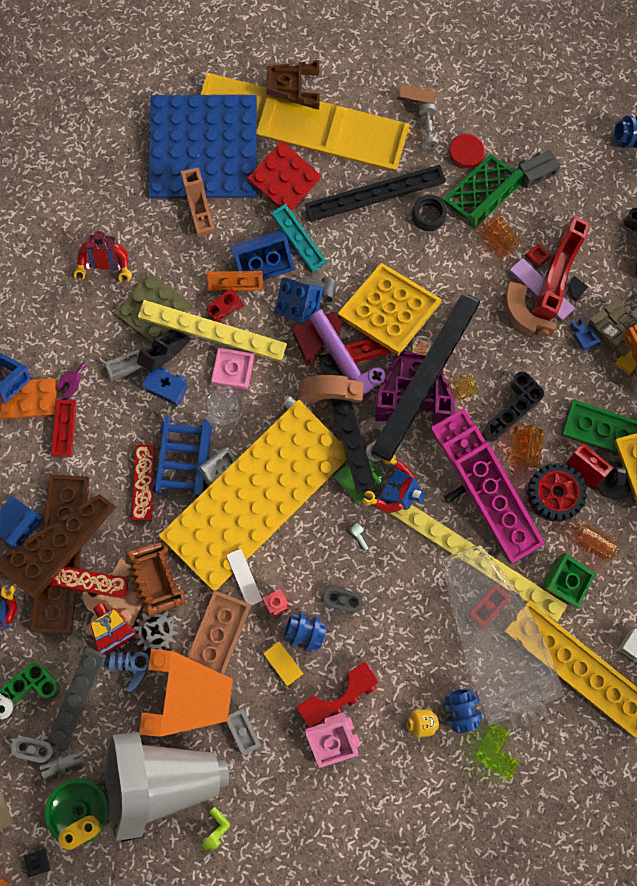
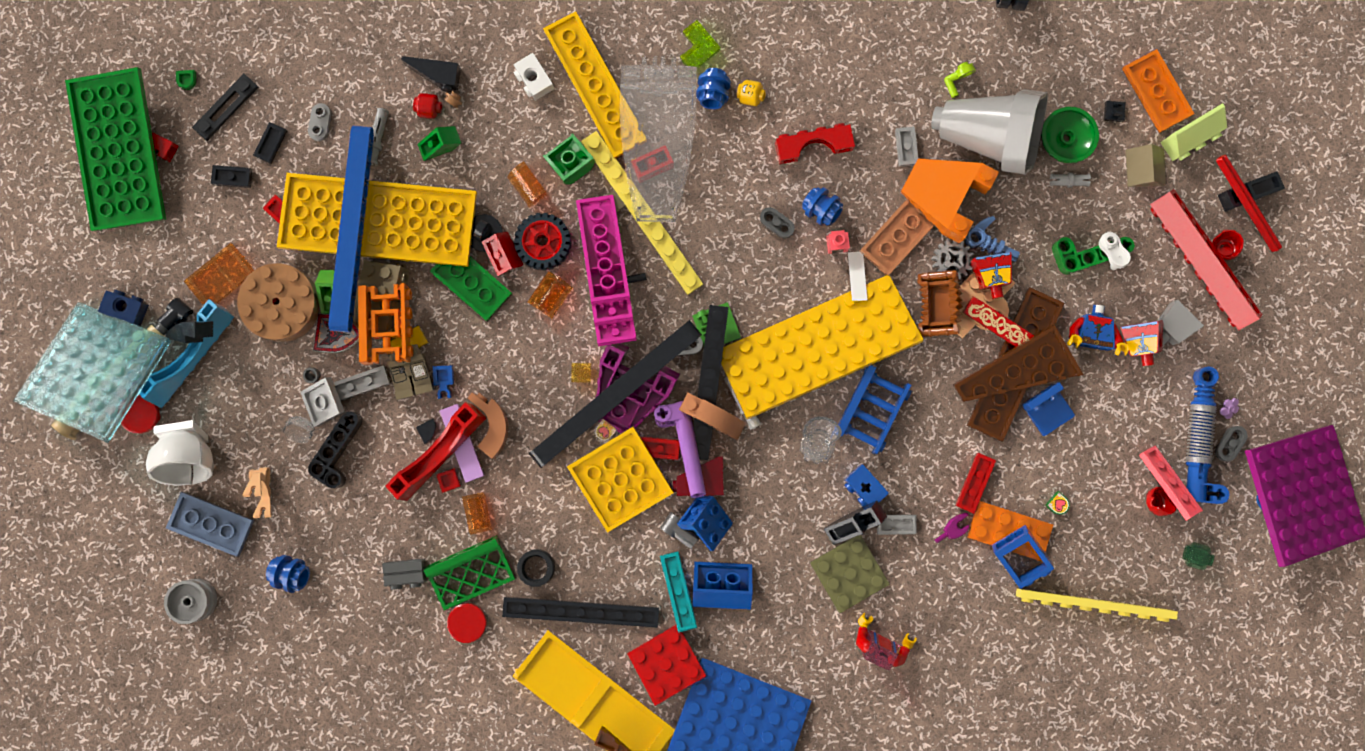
camera: 155 degrees left, 10 degrees up
(33, 749) = (1092, 200): light grey plate -> none
(76, 697) = (1041, 227): dark grey plate -> none
(79, 832) = (1074, 116): yellow plate -> none
(143, 483) = (917, 401): tile -> none
(198, 202) = (765, 667): nougat arch -> none
(212, 331) = (801, 525): light yellow plate -> none
(216, 465) = (845, 387): light grey plate -> none
(224, 305) = (779, 547): red leg -> none
(232, 368) = (794, 480): bright pink tile -> none
(234, 279) = (759, 570): orange tile -> none
(283, 663) = (850, 190): yellow tile -> none
(333, 740) = (833, 107): bright pink plate -> none
(356, 530) = (740, 279): light aqua hand -> none
(396, 489) = (689, 298): torso -> none
(417, 94) = (490, 705): nougat slope -> none
(428, 110) = (487, 685): light grey wheel -> none
(511, 411) = (547, 326): black beam -> none

